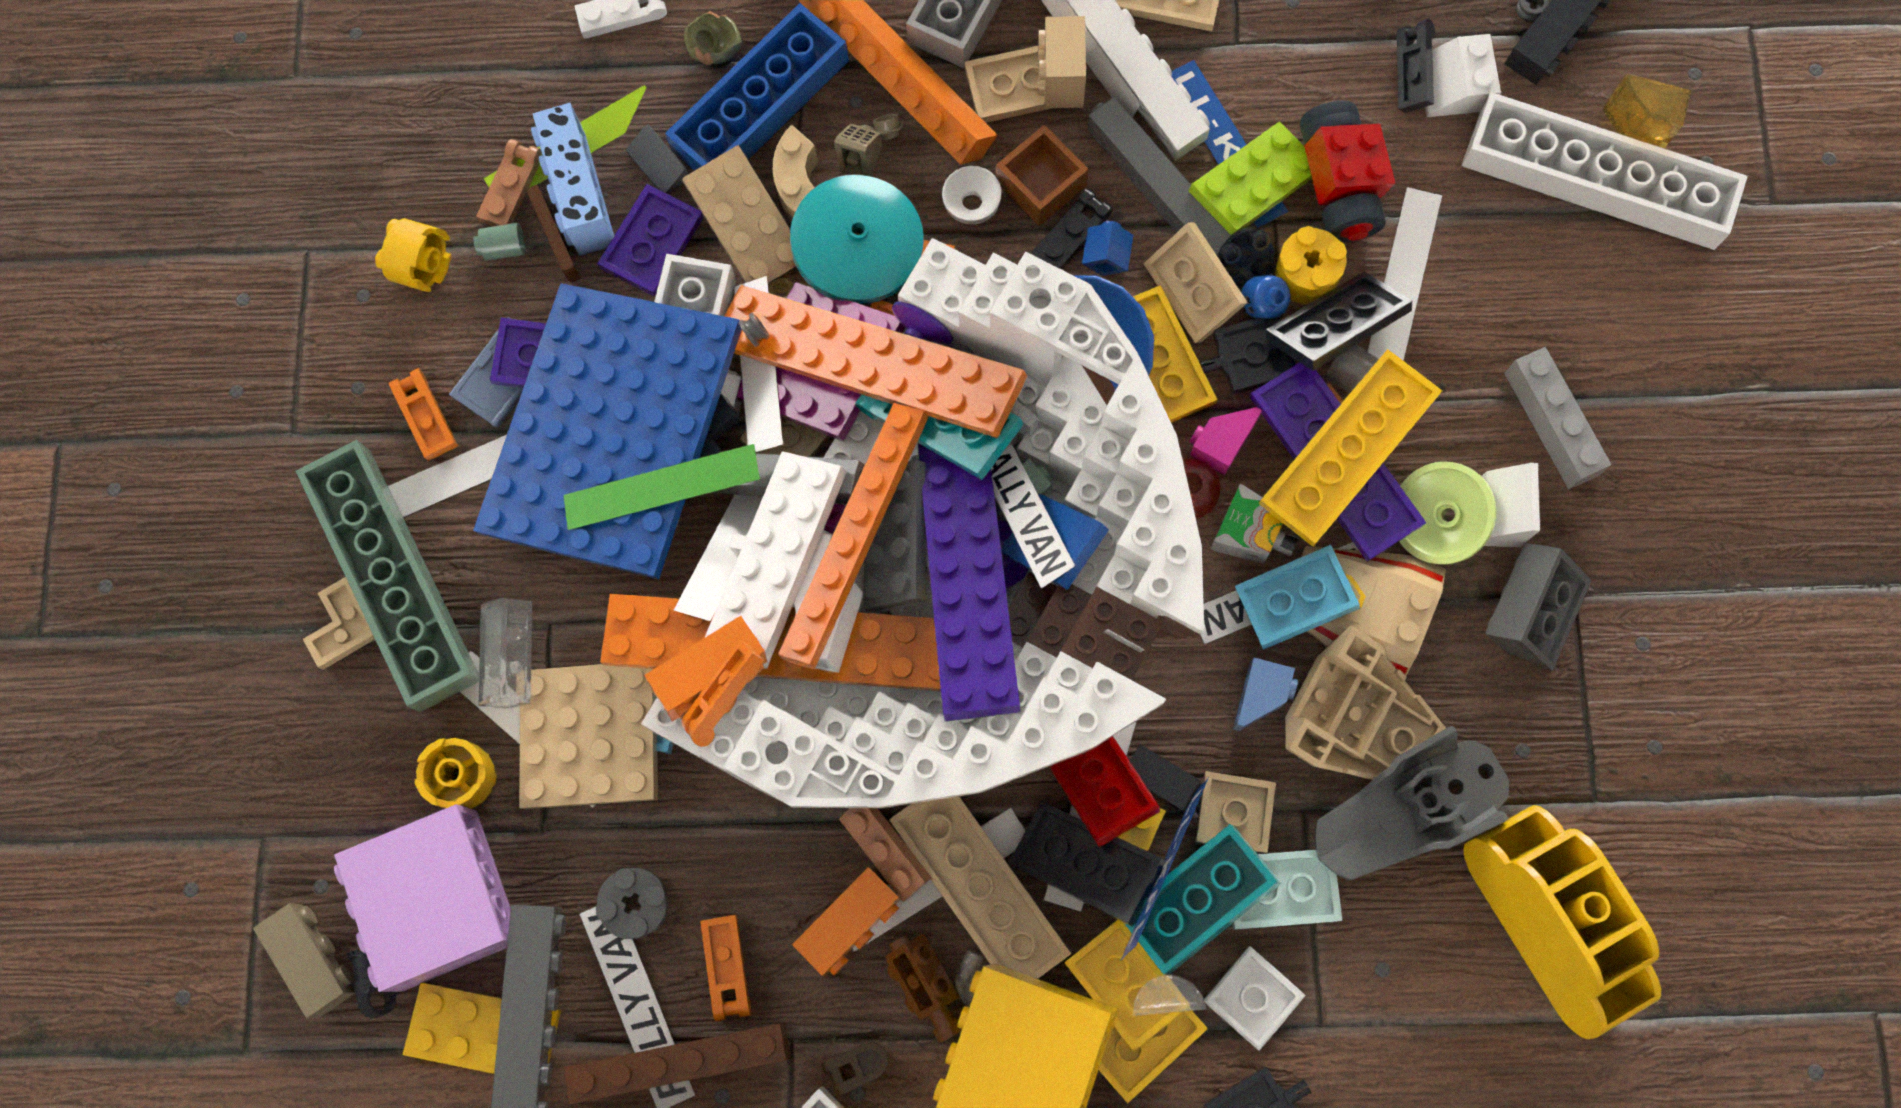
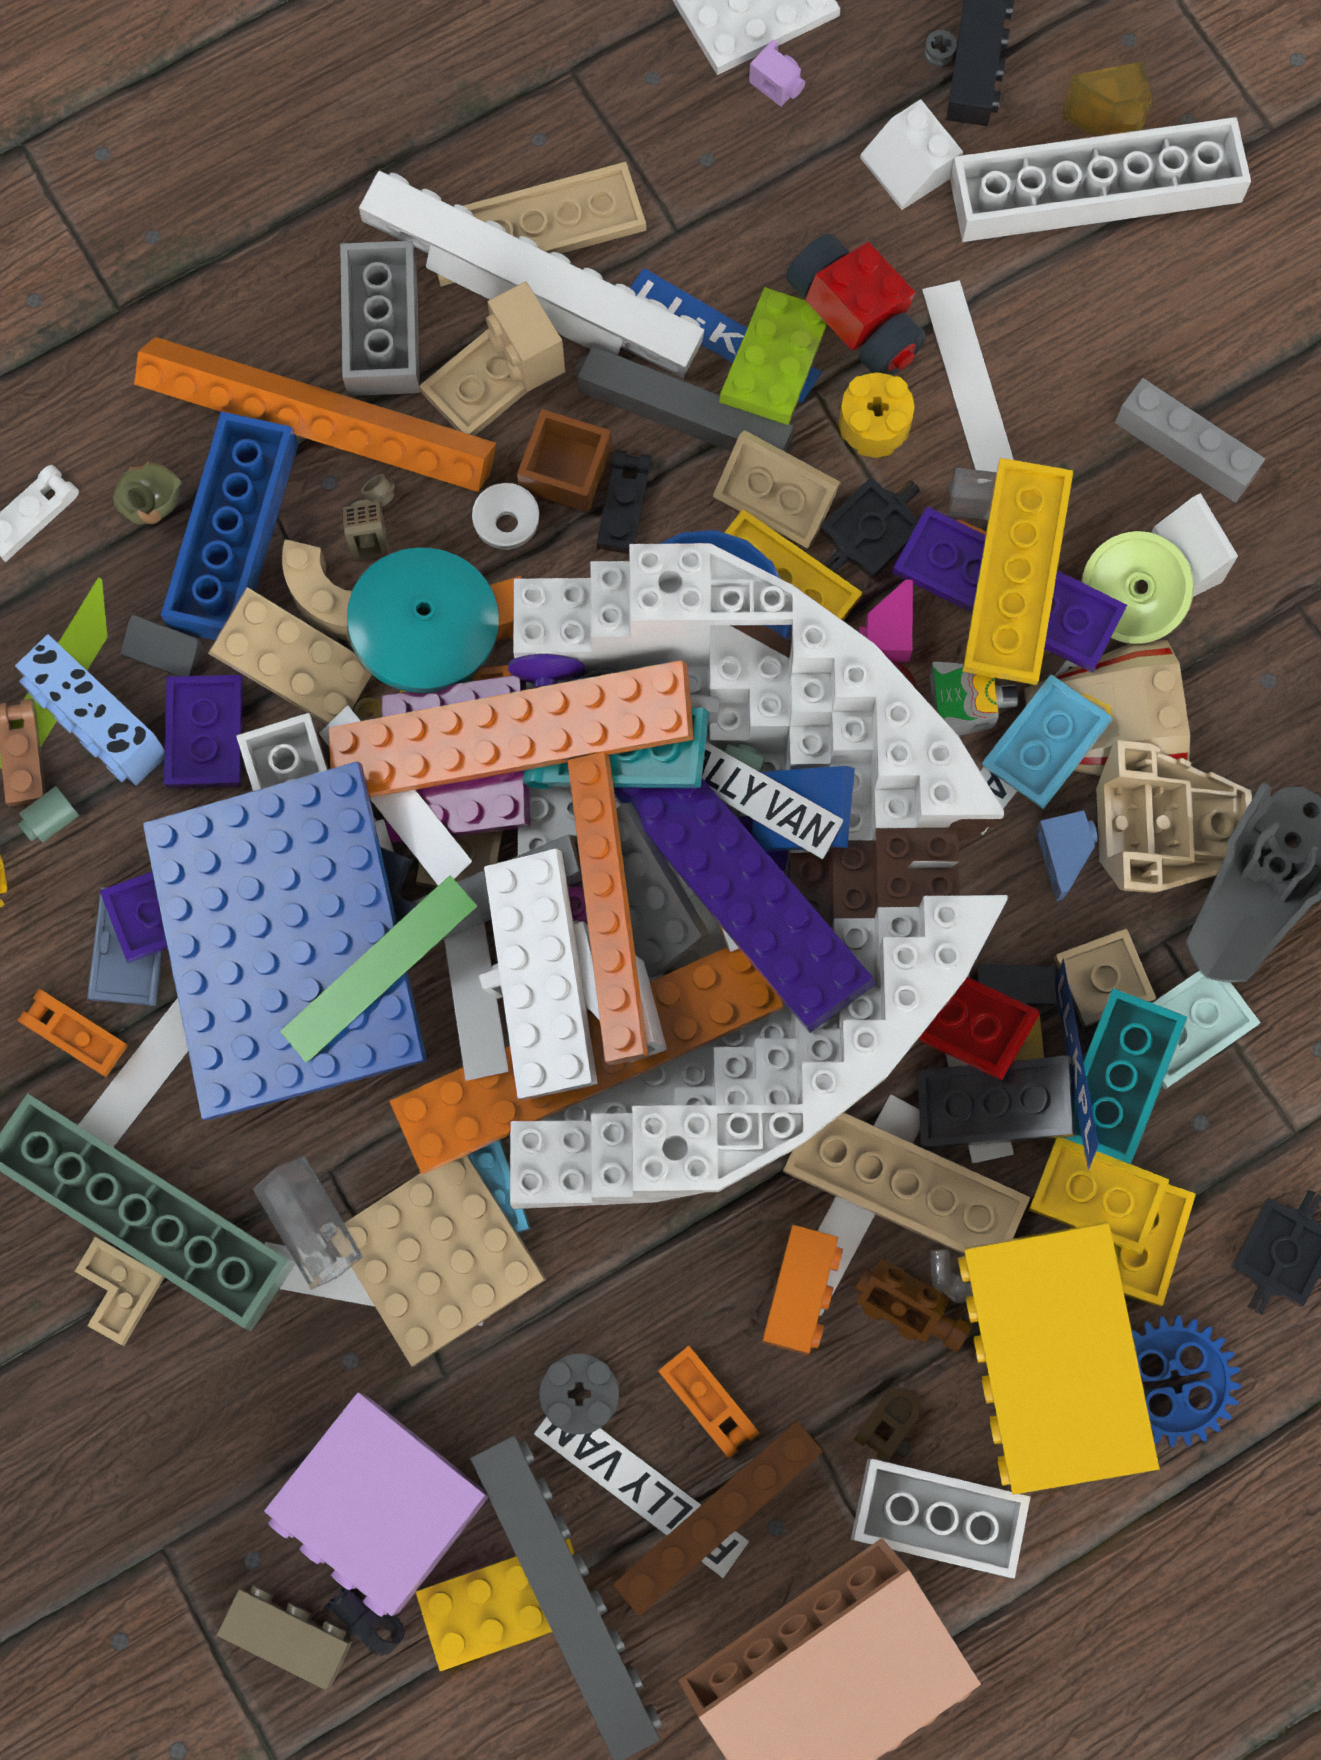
camera: 35 degrees left, 0 degrees up
(436, 768) = (321, 1347): yellow brick -> none
(553, 234) = (99, 778): reddish brown tile -> none
(685, 675) = (548, 1113): orange brick -> none
(721, 693) = (581, 1126): orange plate -> none
(754, 329) = (378, 763): dark grey bush -> none
(886, 850) = (797, 1201): nougat plate -> none
(1107, 248) = (671, 499): blue brick -> none
(1167, 995) = (1144, 1182): clear plate -> none
(1248, 255) = (813, 436): black dish -> none
(1254, 998) = (1220, 1142): white tile -> none
(1266, 297) = (853, 466): blue head -> none
(1338, 320) = (935, 454): black plate -> none
(1415, 66) = (864, 166): black plate -> none
(1538, 605) = (1271, 627): dark grey slope -> none

